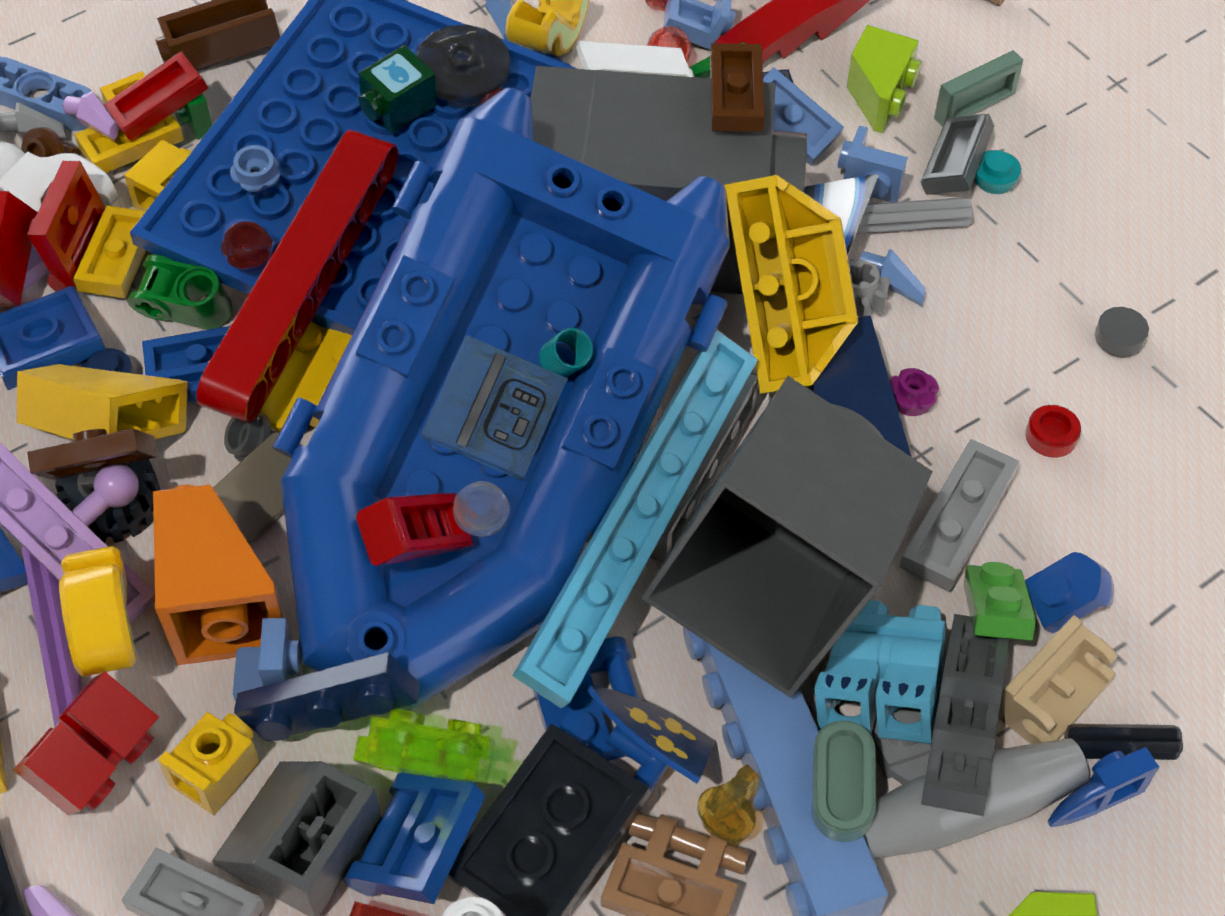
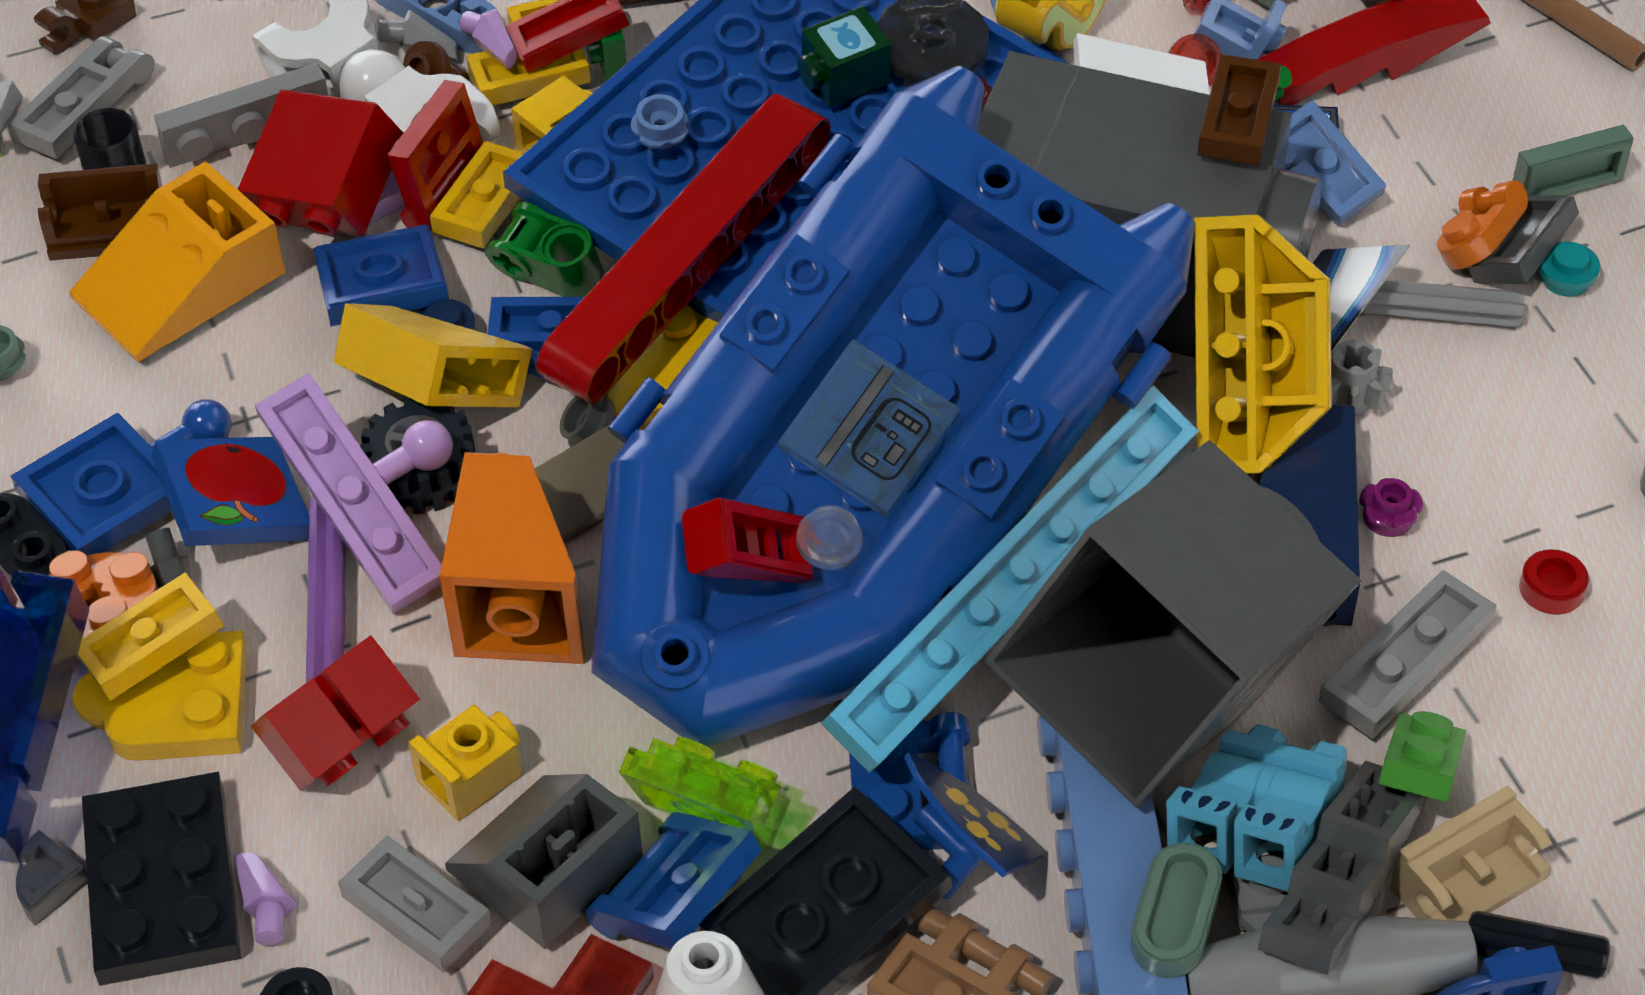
camera: 15 degrees right, 5 degrees down
(91, 452) = (407, 402): reddish brown plate -> none
(95, 611) = (373, 572): yellow animal -> none
(242, 236) = (630, 206): clear red plate -> none
(272, 662) = (553, 677): medium blue bracket -> none
(327, 697) = (609, 710): dark blue plate -> none
(580, 344) = (980, 367): teal piece -> none
(728, 807) = (1039, 916): clear yellow piece -> none
(863, 161) = (1428, 241): medium blue bracket -> none
(880, 72) = (1453, 128): lime slope -> none
(901, 278) = (1408, 370): medium blue bar -> none
(925, 145) = (1481, 223): none -> orange plate
(1069, 588) = (1519, 755): blue plate -> none

